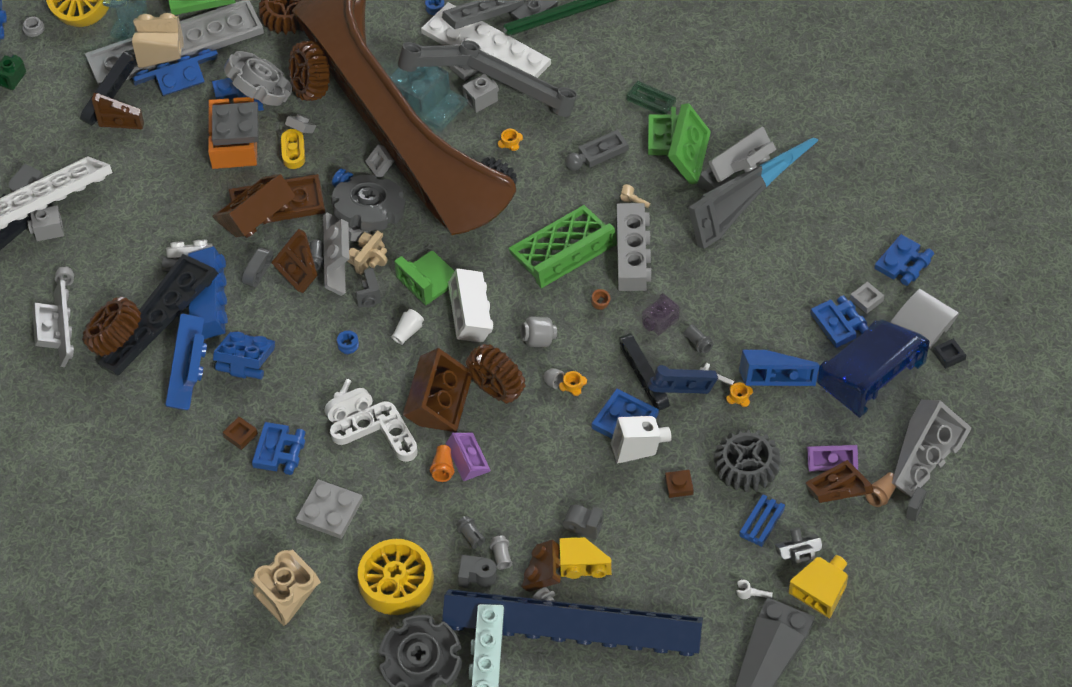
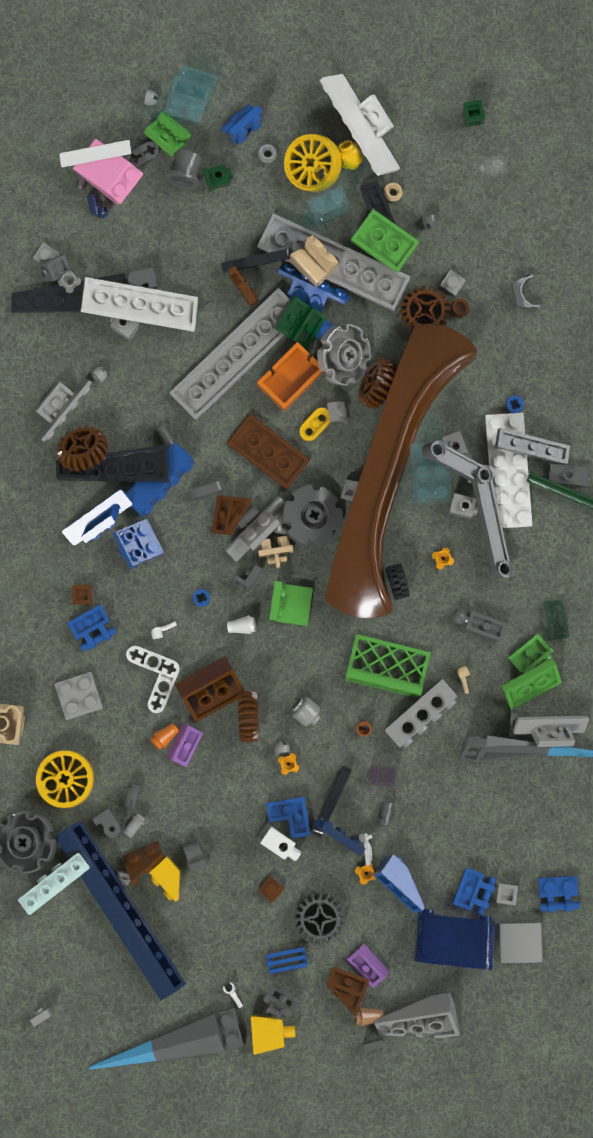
camera: 45 degrees right, 30 degrees up
(168, 164) = (231, 358): none -> light grey plate
(179, 248) = (182, 435): white plate -> none
(192, 94) = (299, 322): none -> dark green slope
(235, 123) = (291, 379): dark grey plate -> none
(255, 206) = (245, 447): reddish brown slope -> none
(341, 176) = (318, 480): blue bush -> none
(348, 404) = (155, 643): white plate -> none
(470, 305) = (288, 653): white brick -> none
(949, 353) = (507, 977): black tile -> none

